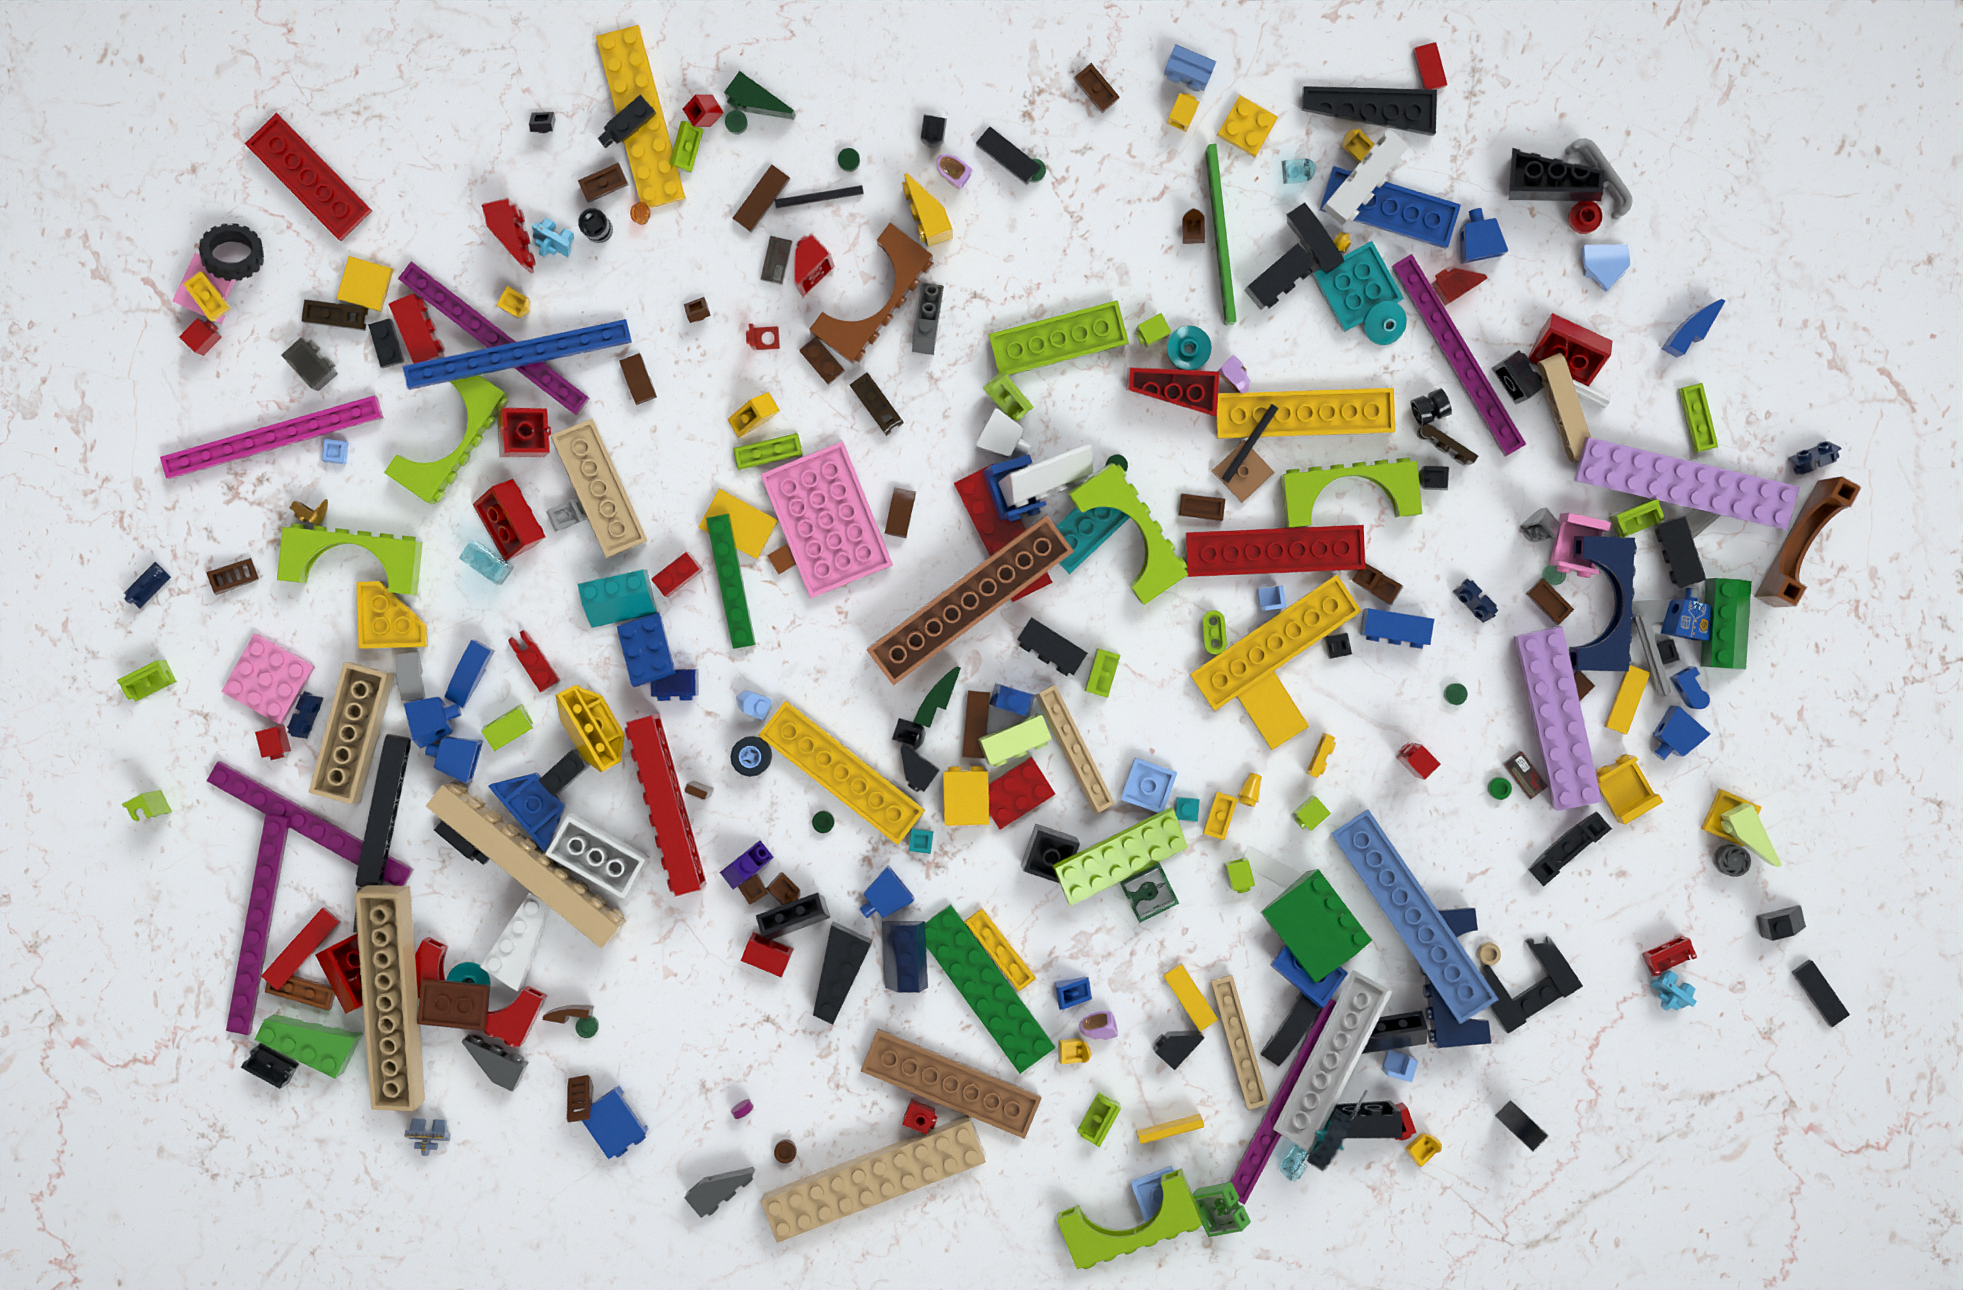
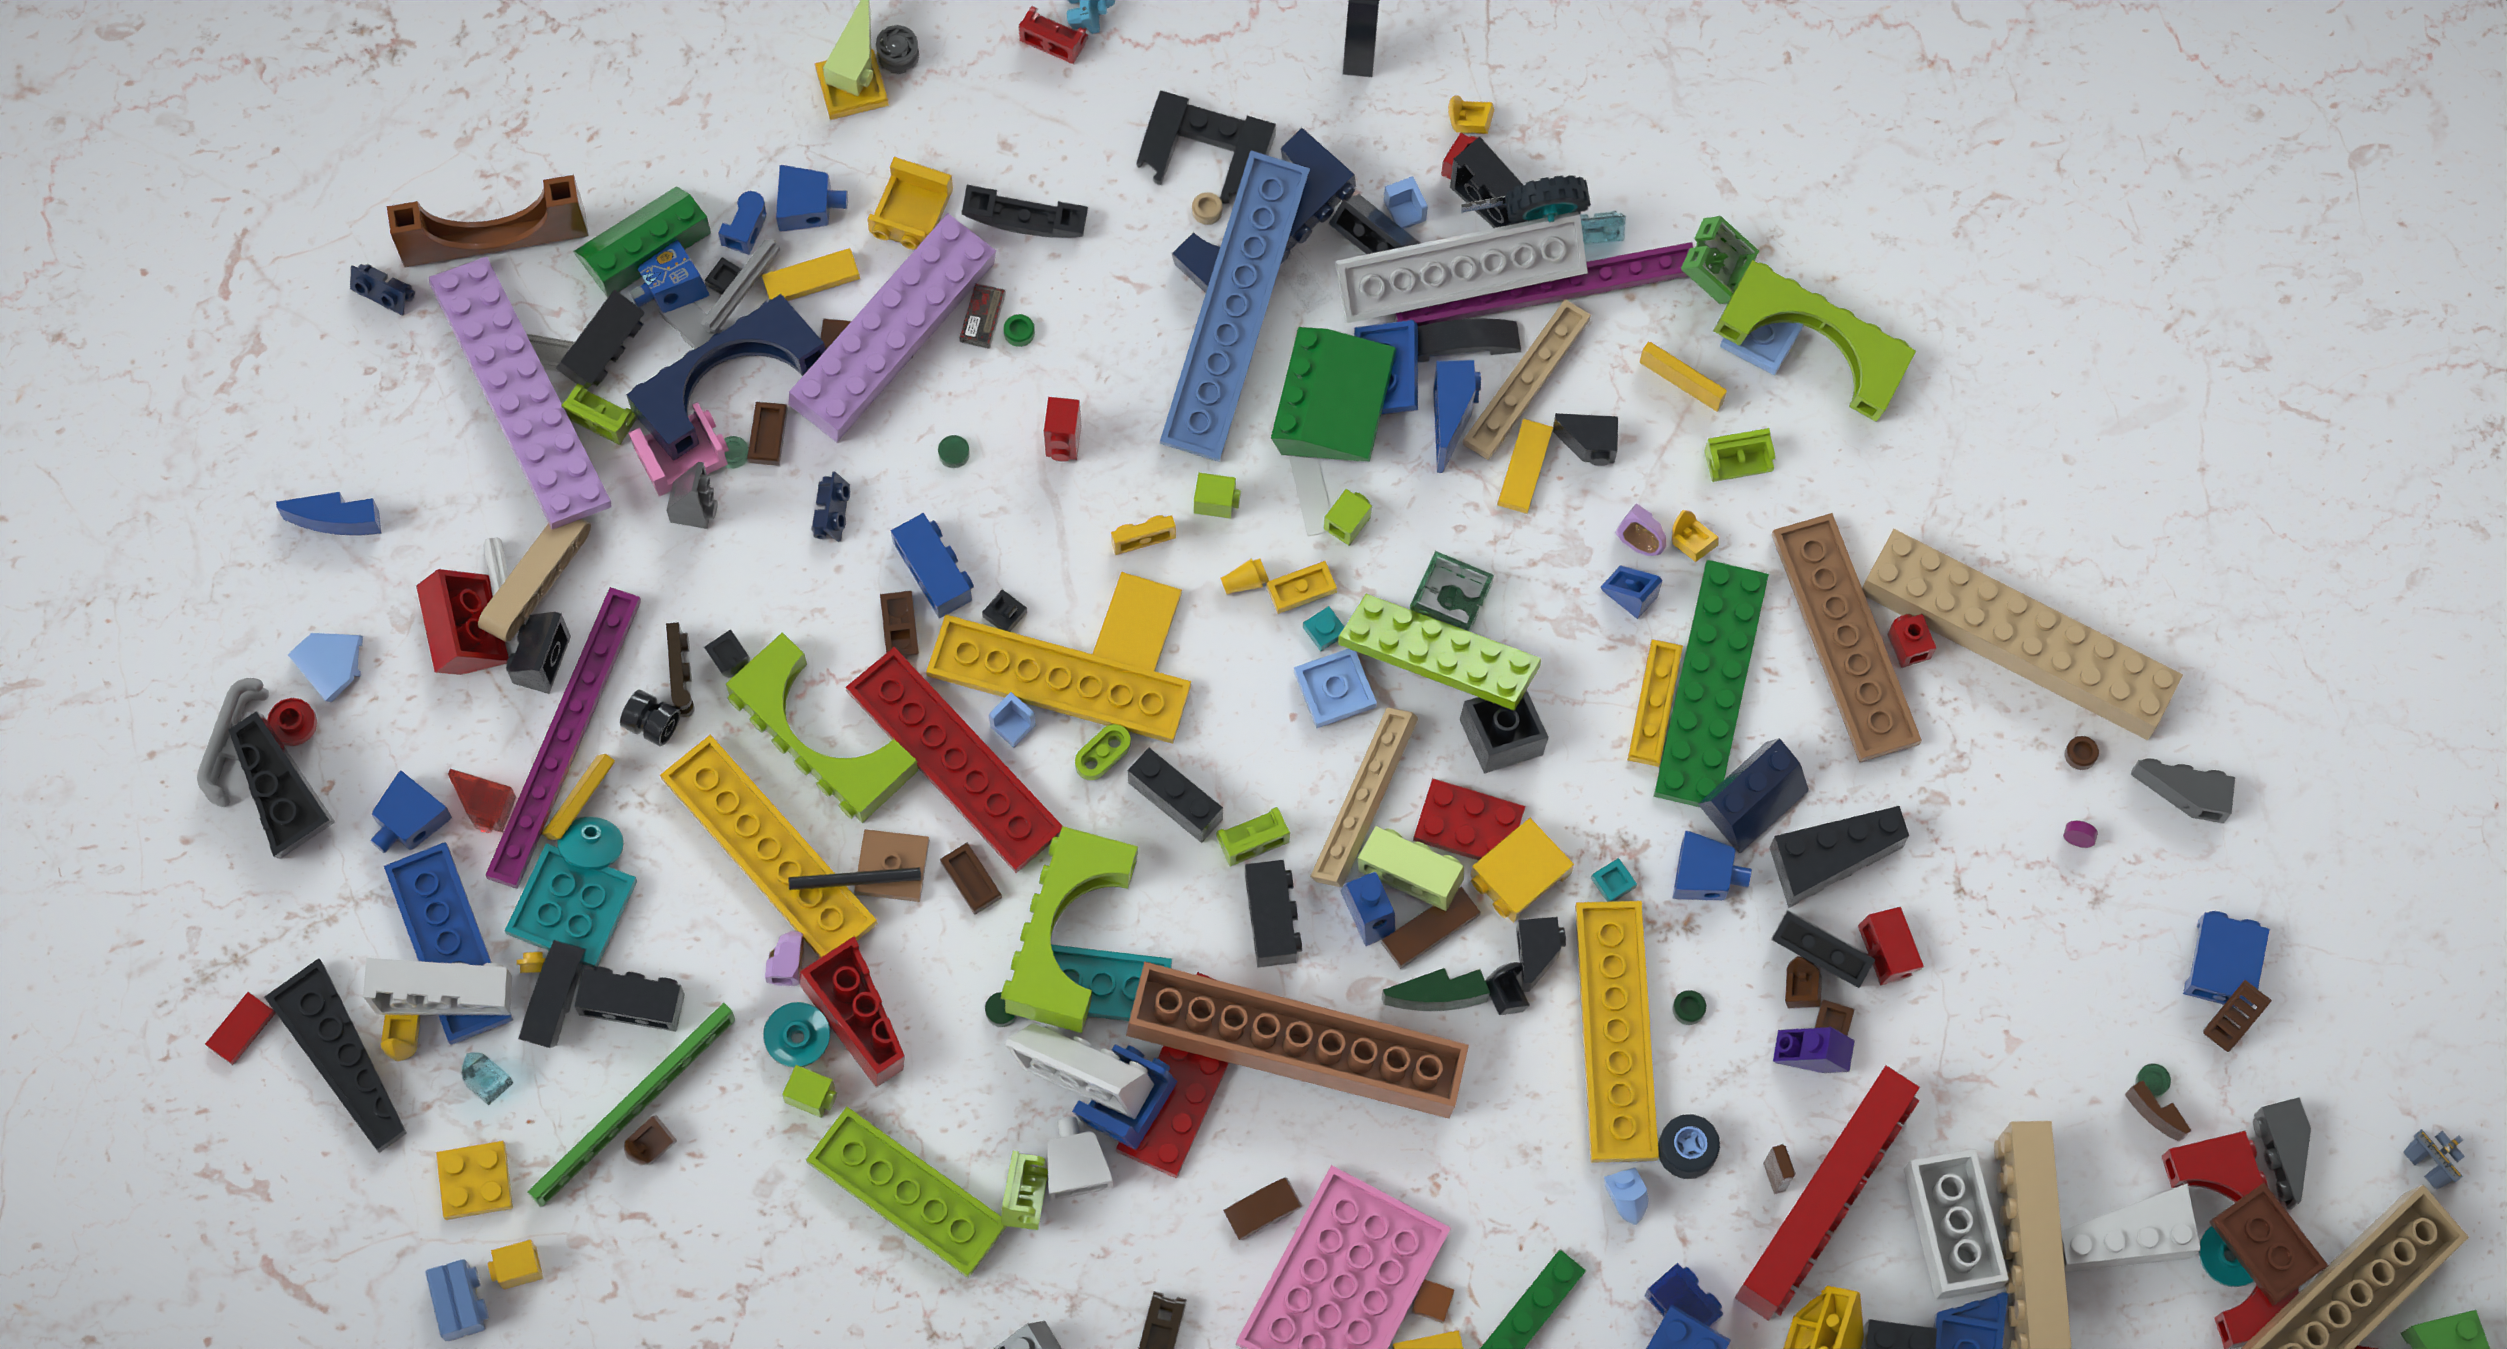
camera: 135 degrees left, 20 degrees down
(1158, 649) = (1175, 795): none -> black brick
(1261, 992) = (1454, 393): none -> blue slope
(1416, 335) = (578, 797): none -> yellow tile
(1698, 417) = (431, 436): lime tile -> none

